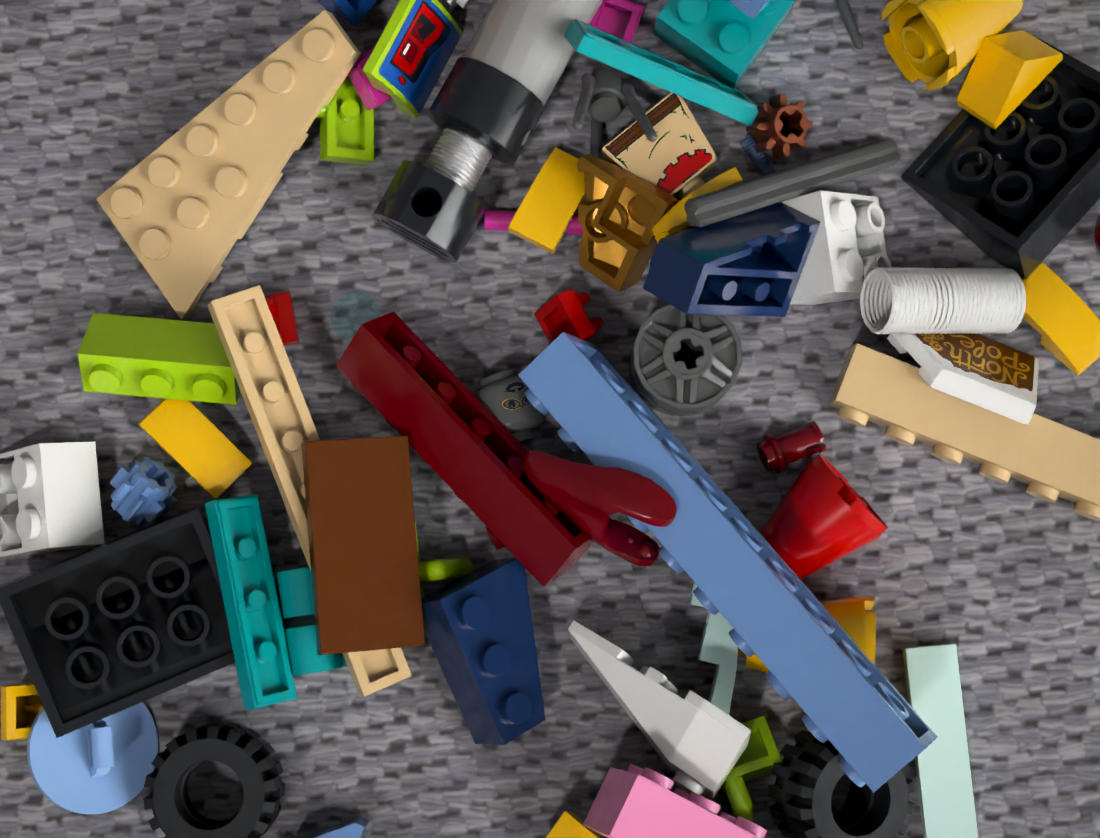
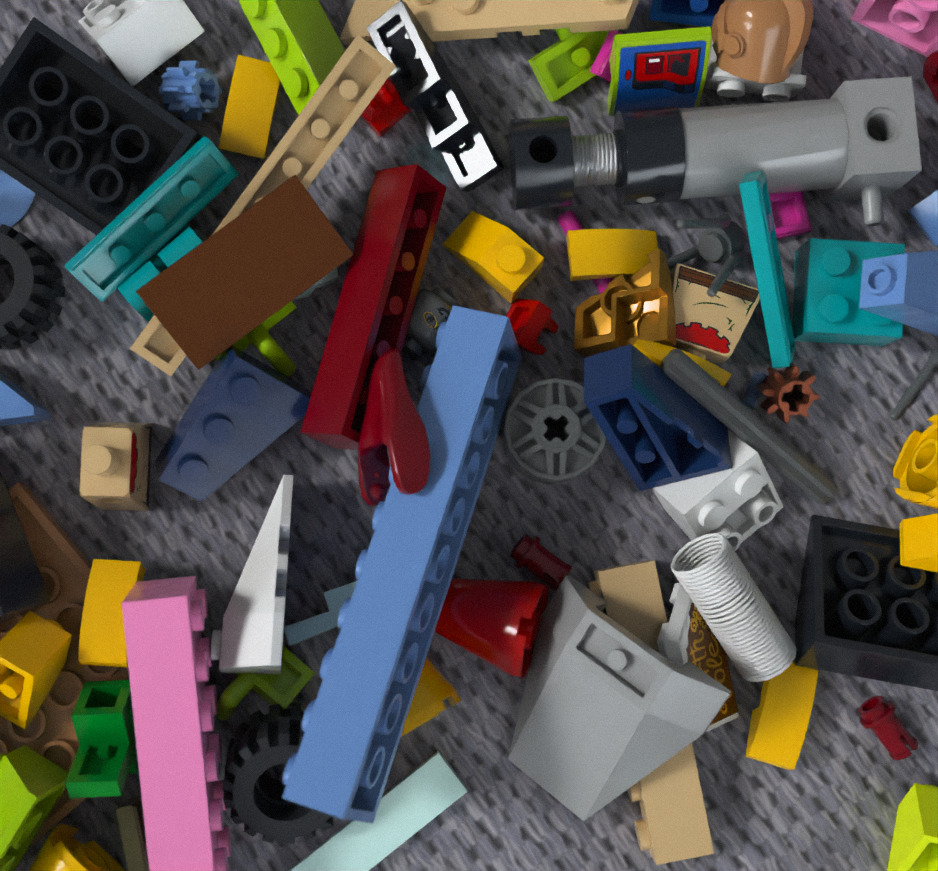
camera: 60 degrees right, 0 degrees up
(299, 267) = (435, 97): none -> black slope
(458, 778) = (116, 465): none -> tan torso
(482, 307) = (495, 254): none -> yellow slope
(955, 472) = (603, 704): none -> light grey wedge

